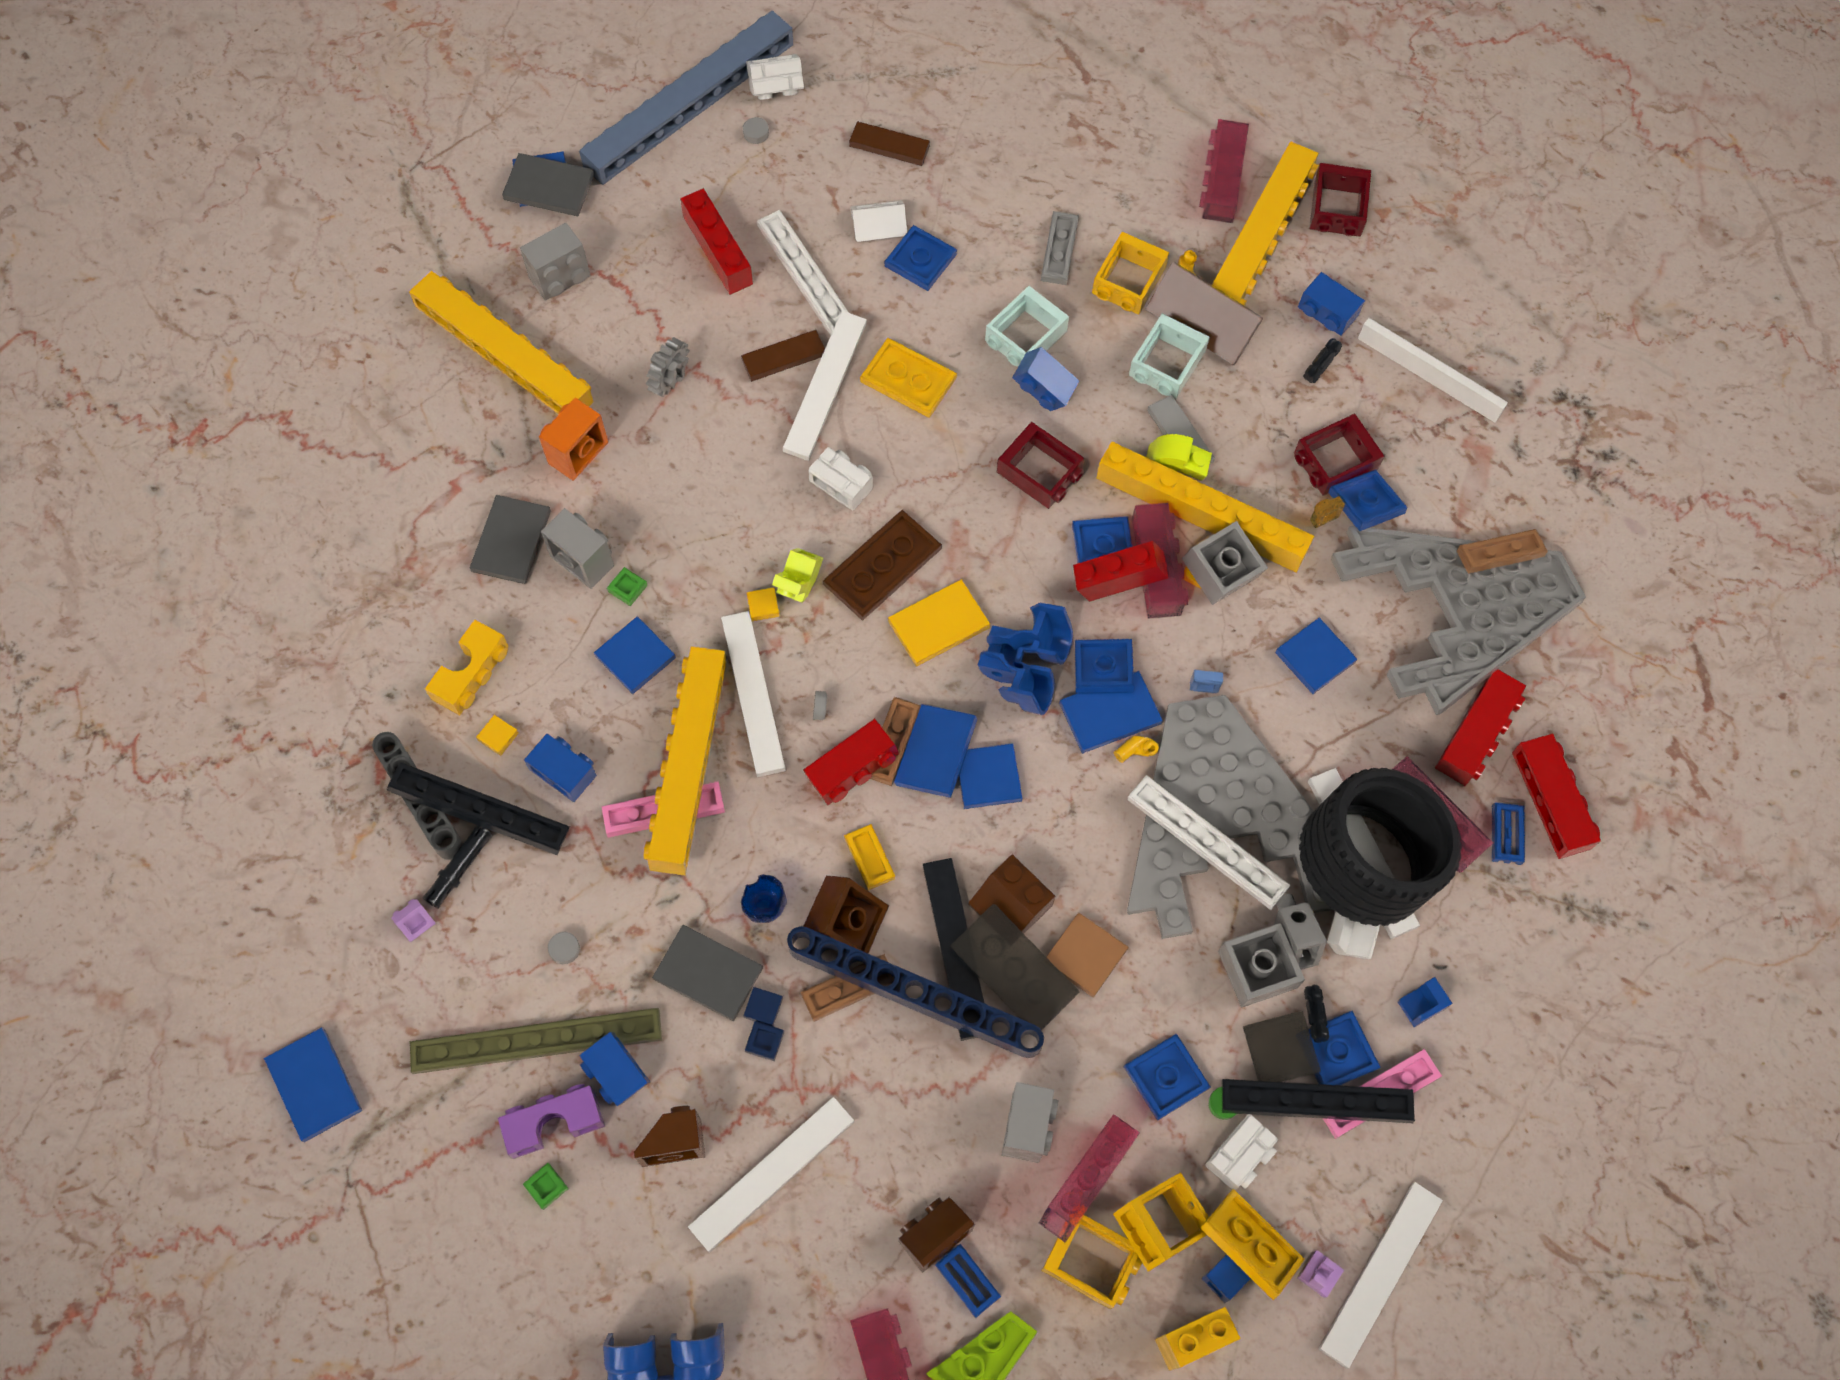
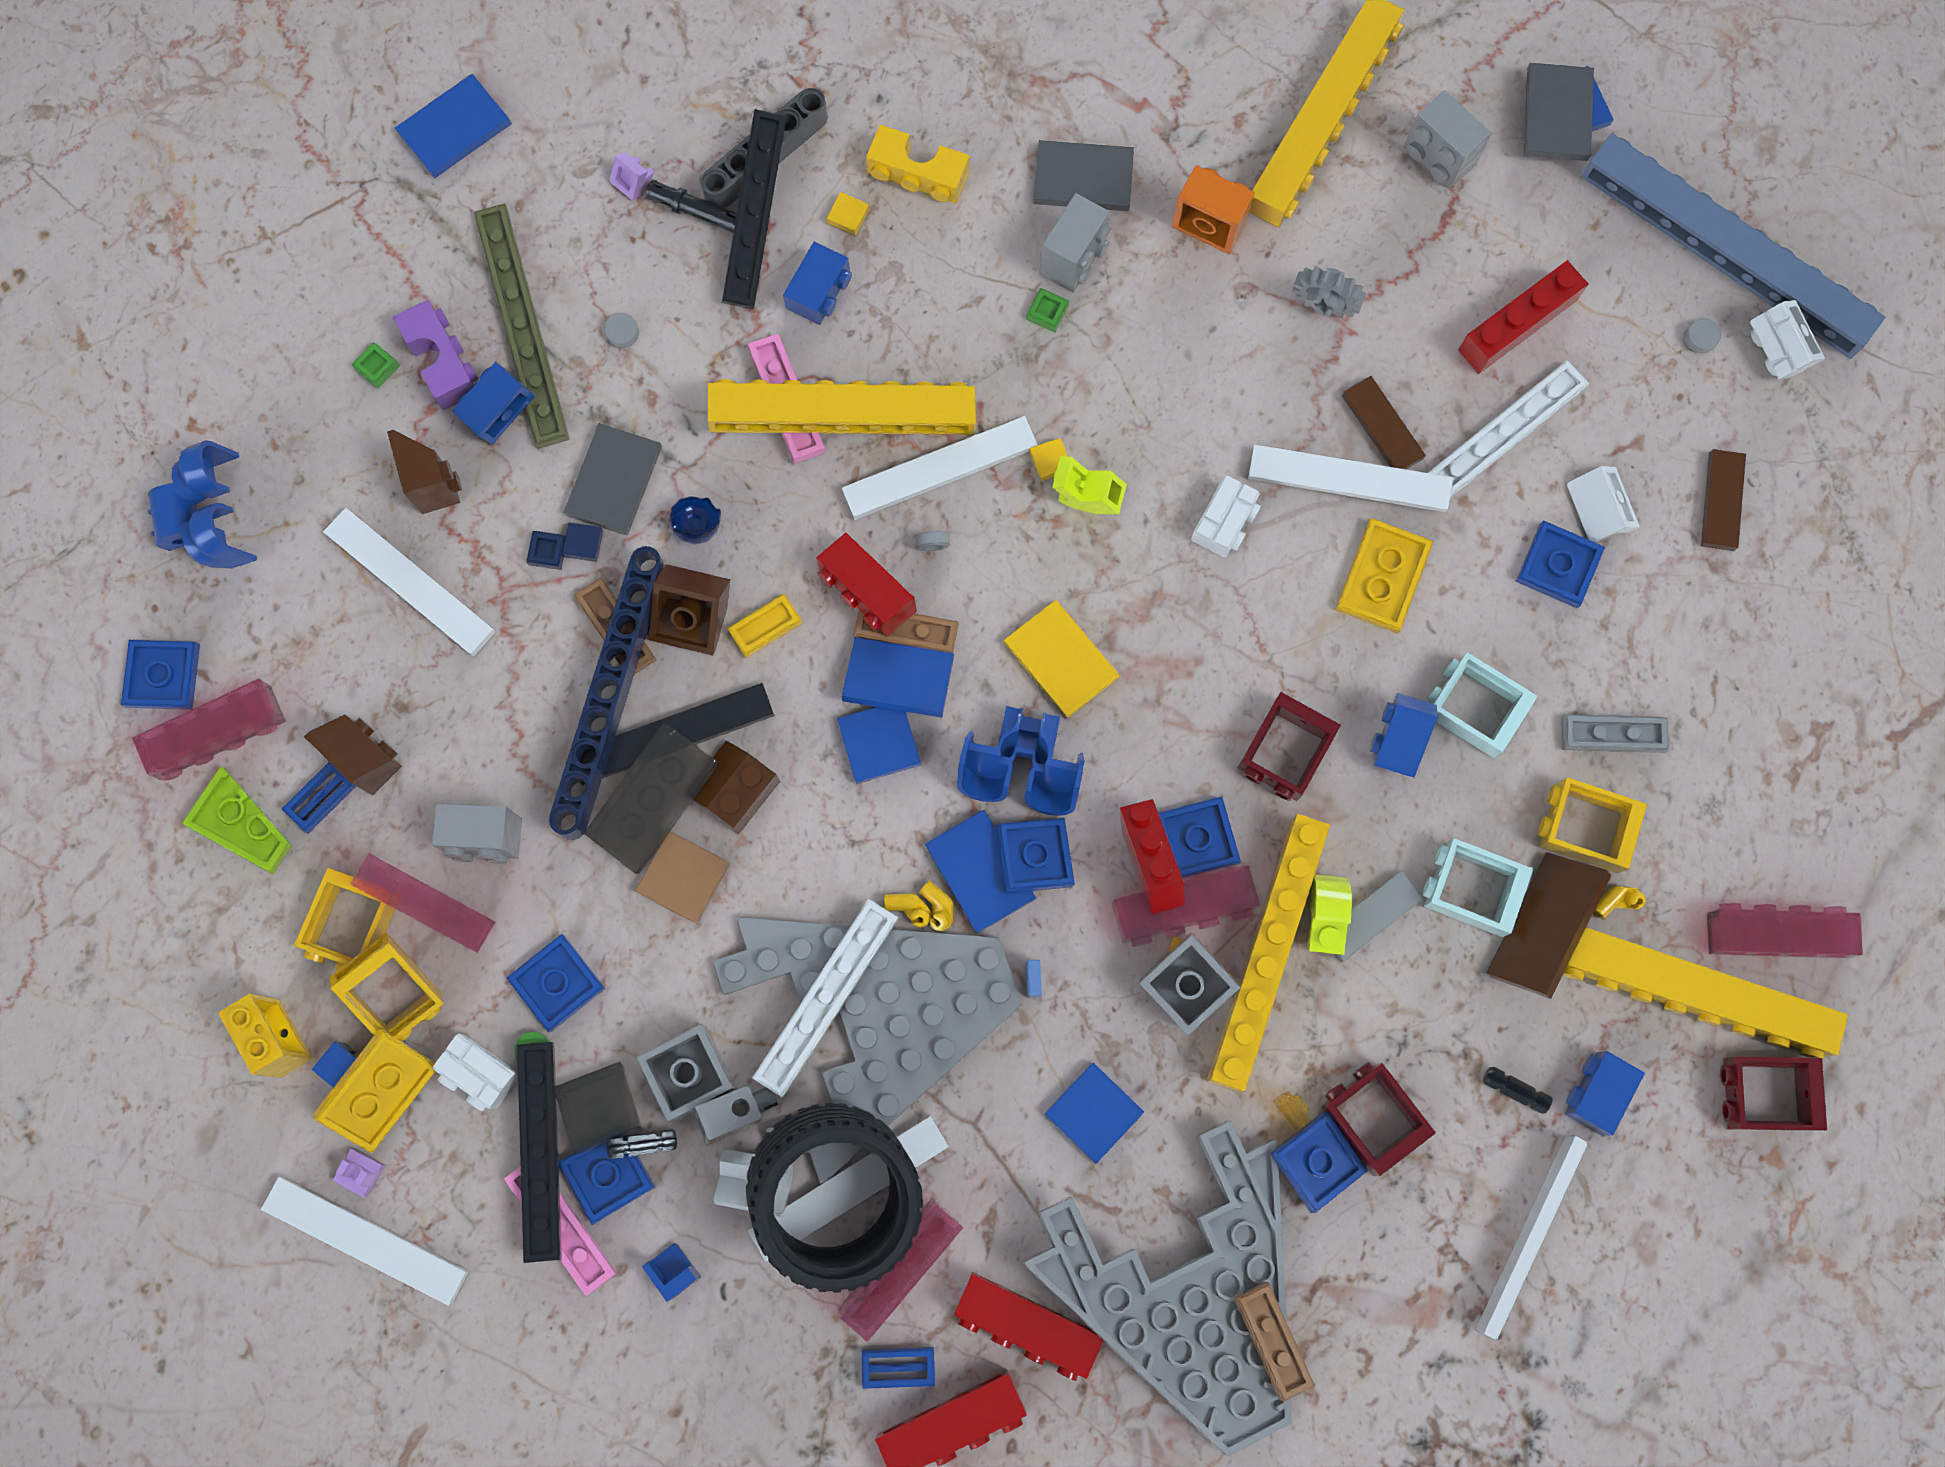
camera: 85 degrees right, 10 degrees up
(634, 655) = (964, 334): blue tile -> none
(882, 564) = (1126, 584): reddish brown tile -> none
(1133, 769) = (911, 905): none -> yellow arm

